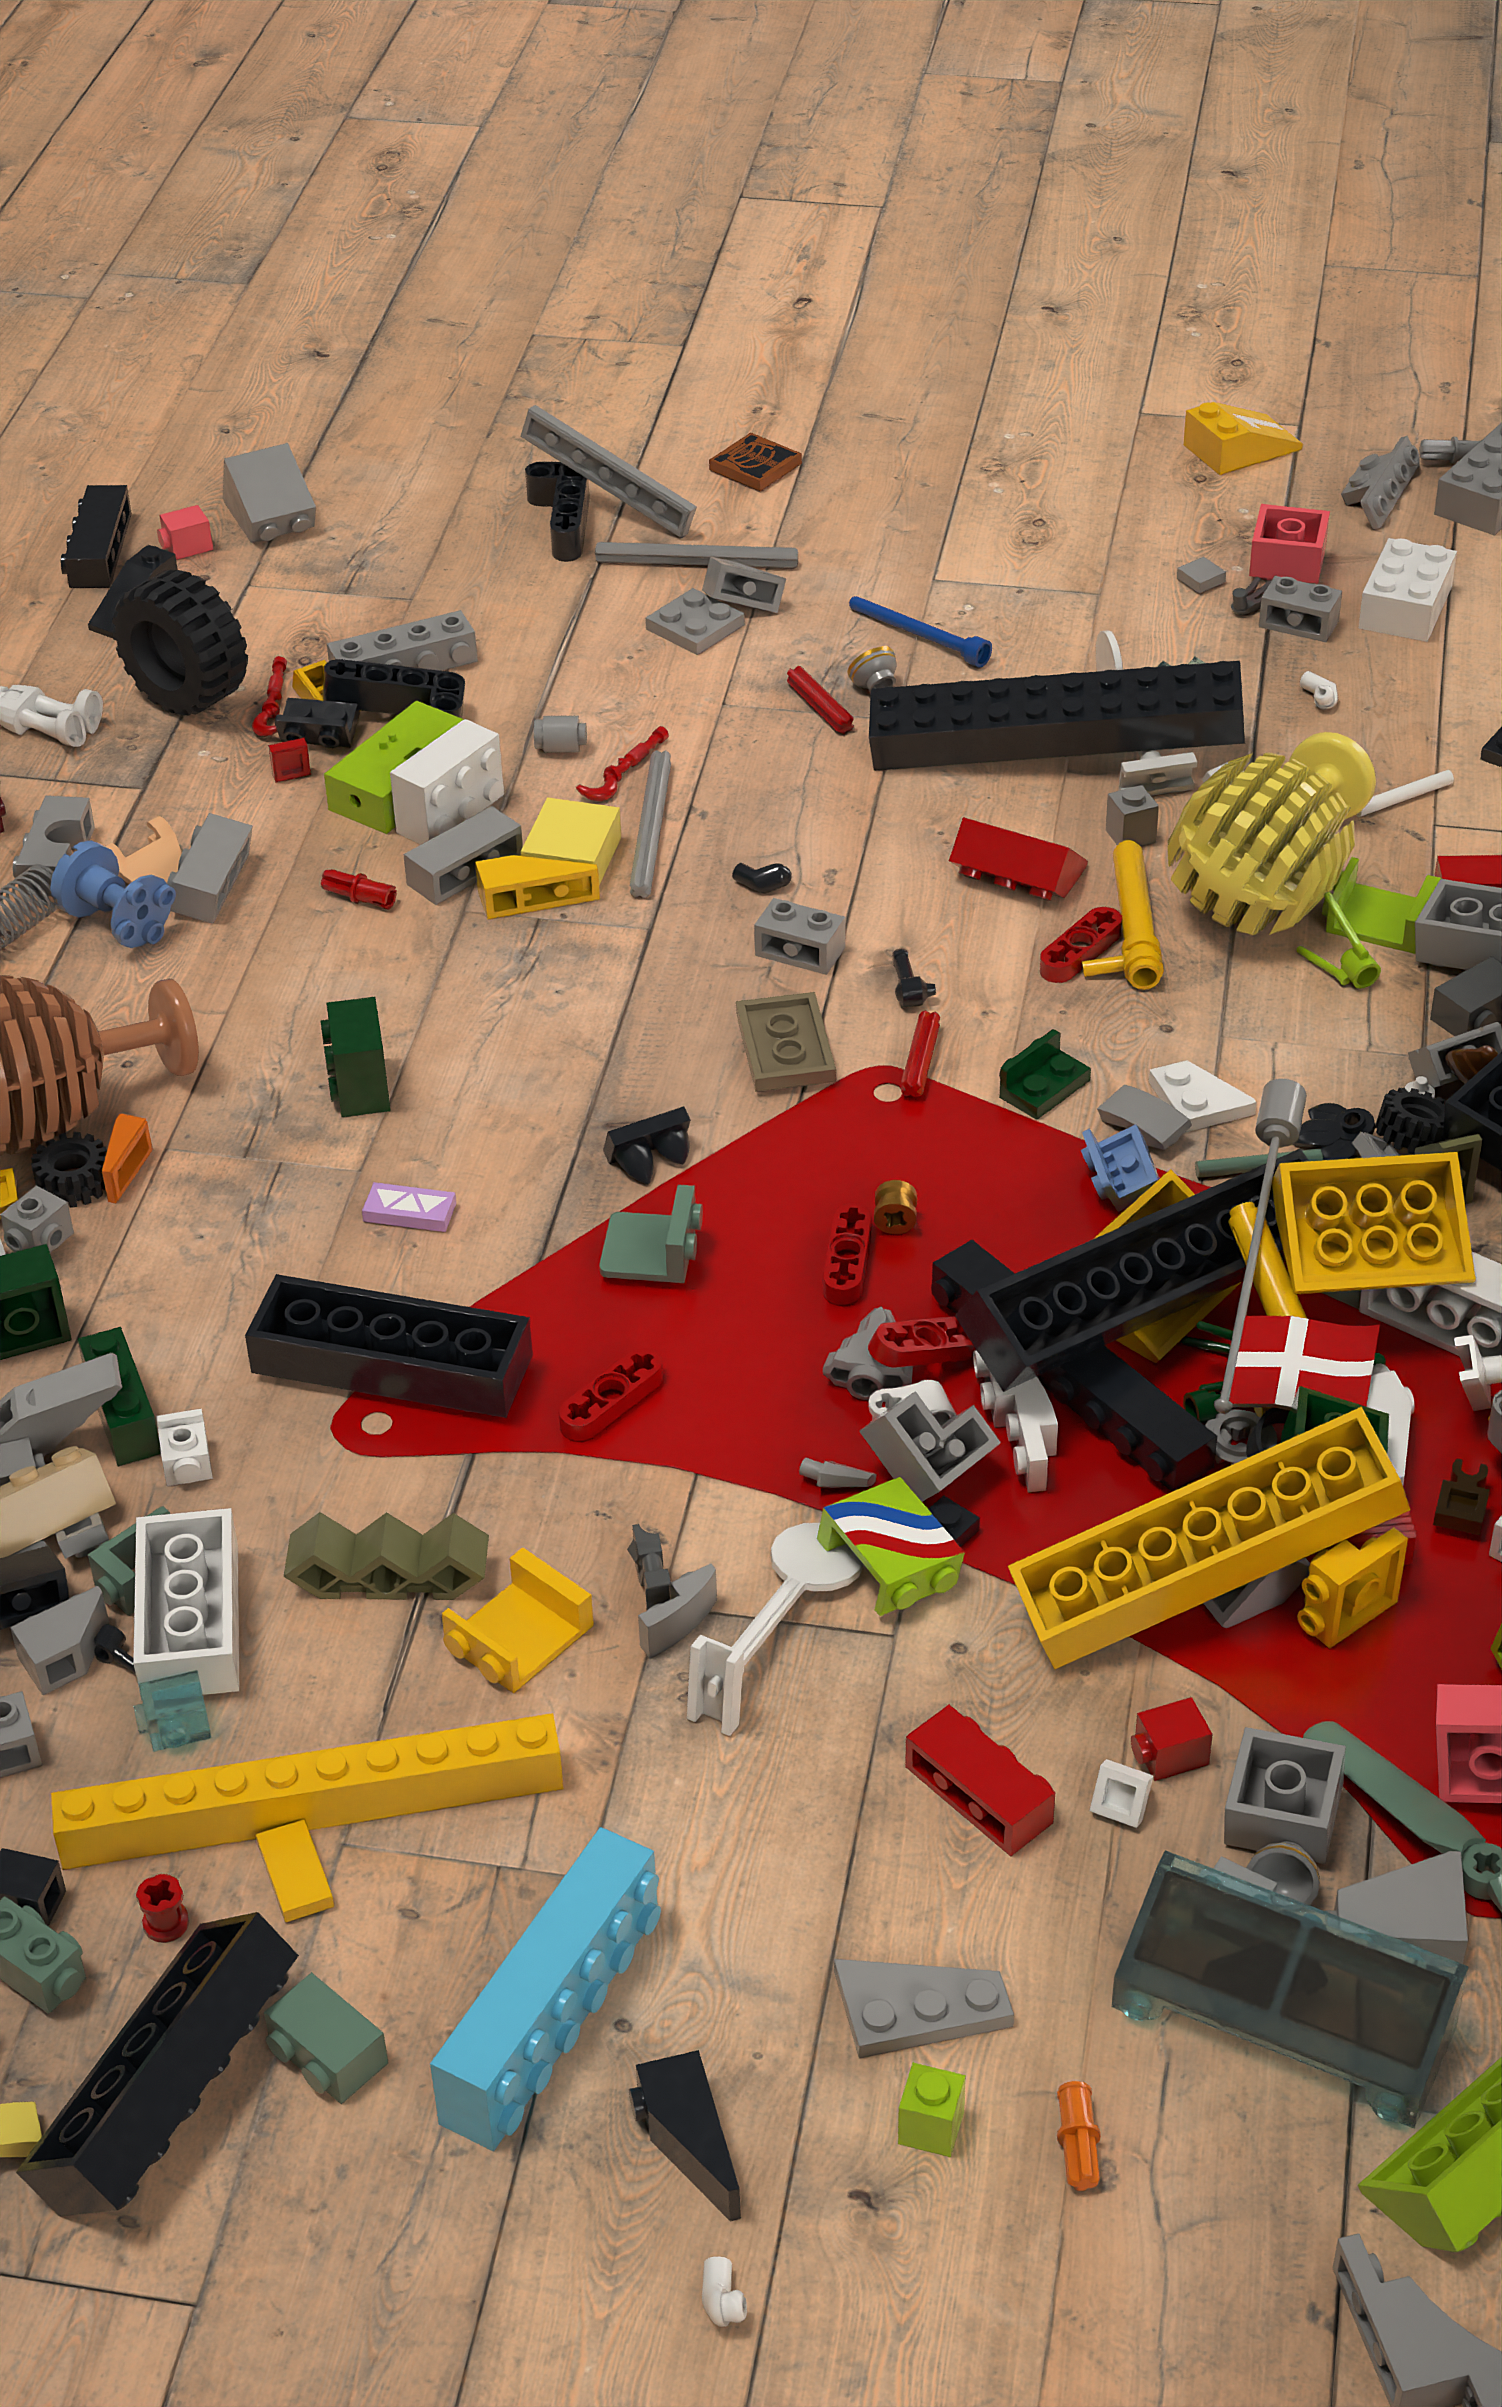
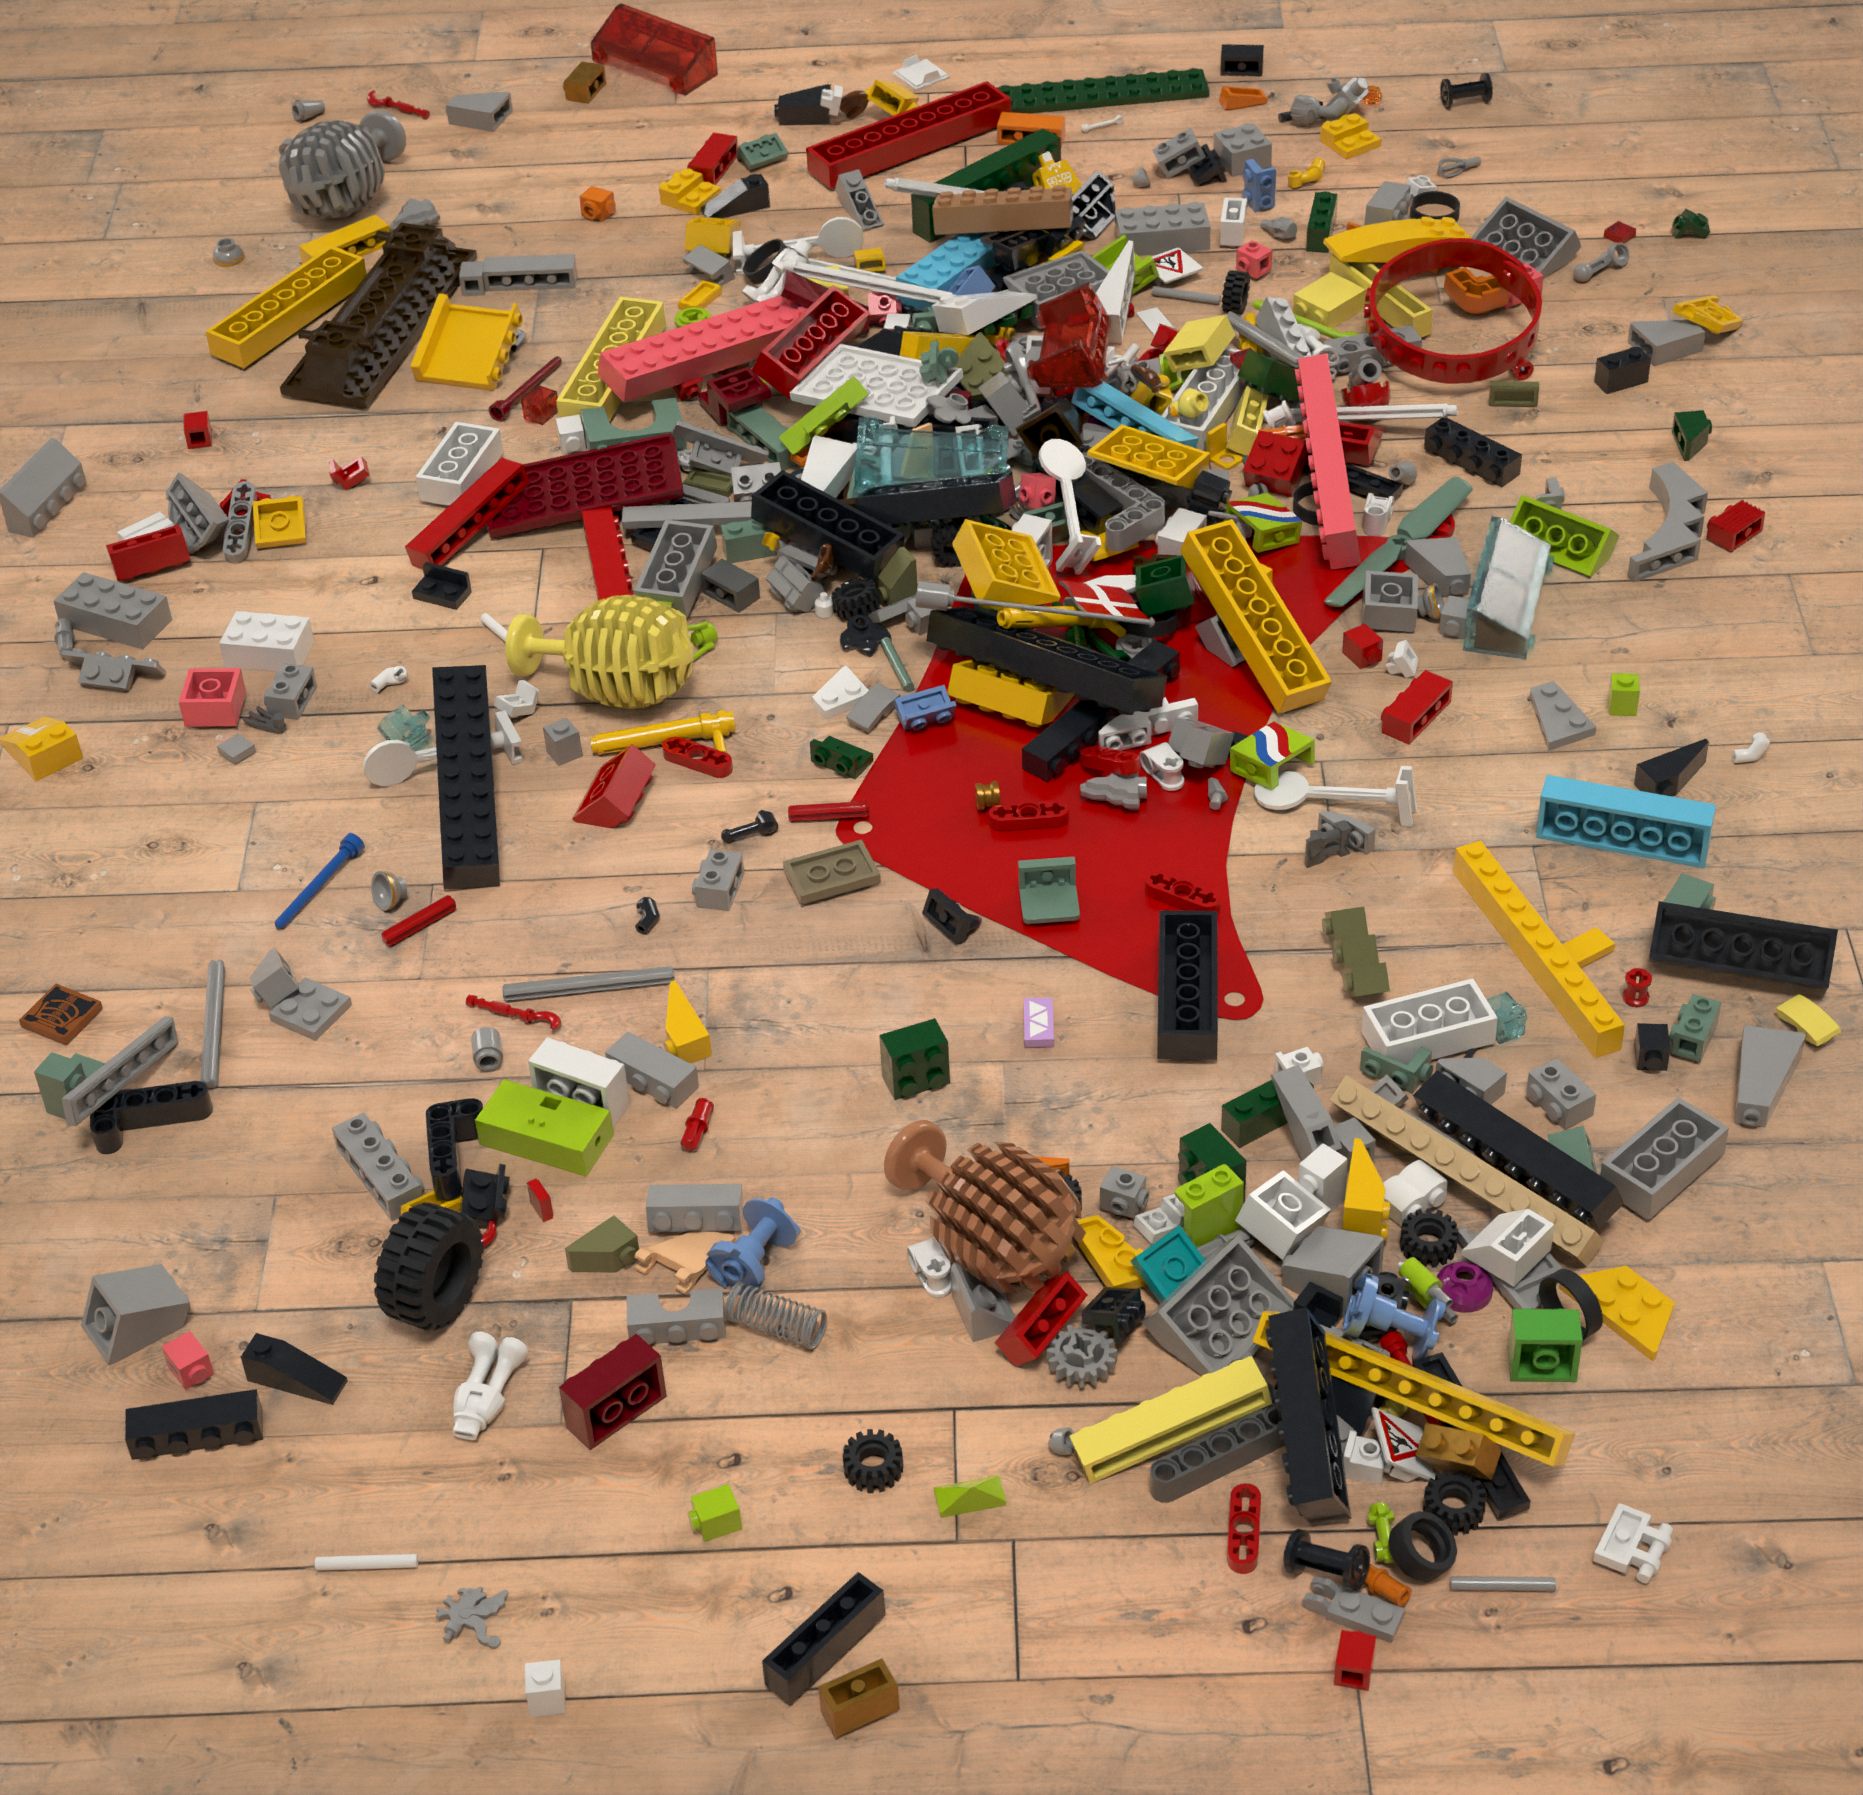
camera: 100 degrees left, 0 degrees up
(187, 800) = (603, 1249): none -> olive slope
(522, 1624) = (1383, 901): yellow panel -> none
(575, 833) = (630, 1008): light yellow brick -> none
(613, 430) = (59, 1076): none -> sand green brick
(1078, 2135) = (1609, 654): orange axle -> none

